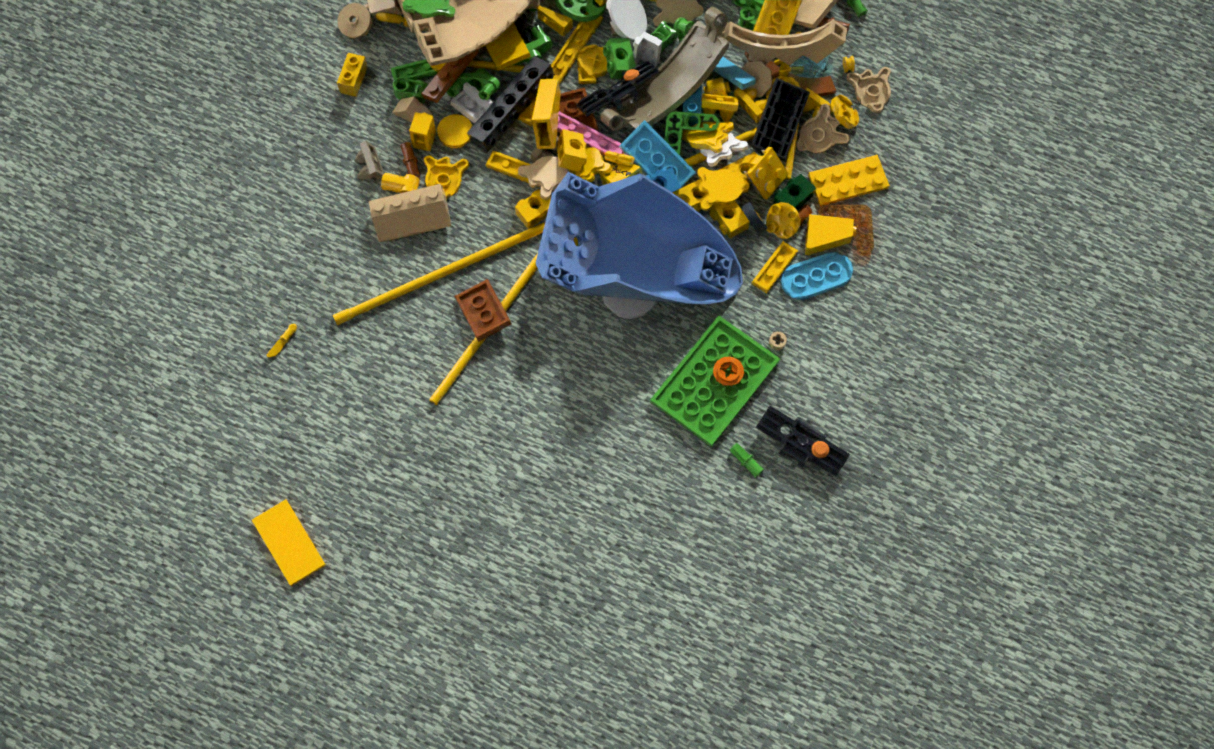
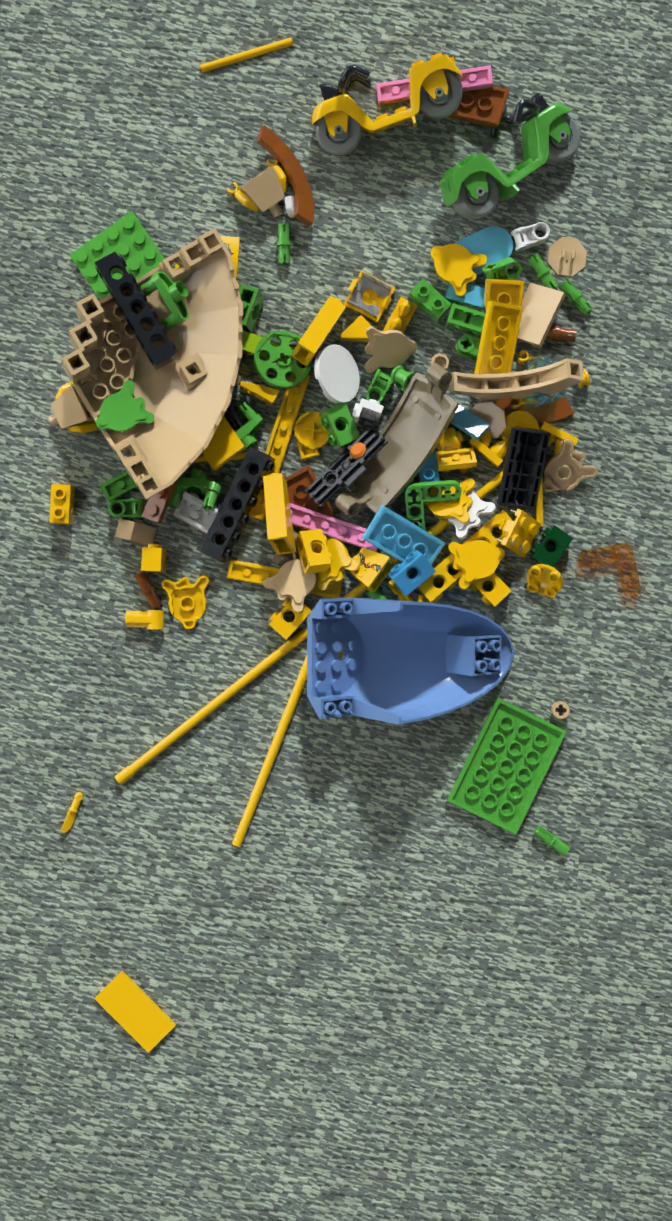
camera: 10 degrees left, 20 degrees up
(360, 26) = (56, 437): tan plate -> none
(369, 156) = (111, 603): dark tan tile -> none
(410, 213) = (164, 653): tan slope -> none
(453, 130) = (185, 544): yellow tile -> none
(483, 310) = (262, 741): dark orange tile -> none
(619, 158) = (360, 549): yellow piece -> none
(736, 368) = (524, 765): orange gear -> none
(754, 218) = (515, 585): black bush -> none
(774, 267) = (543, 629): yellow tile -> none
(801, 447) = (601, 820): black piece -> none
(804, 213) = (562, 565): dark orange pin -> none
(816, 275) = (587, 630): medium azure tile -> none
(827, 233) = (591, 583): yellow slope -> none
(844, 112) = (588, 440): yellow tile -> none
(848, 180) = (603, 515): yellow plate -> none
(871, 89) = (611, 402): tan tile -> none

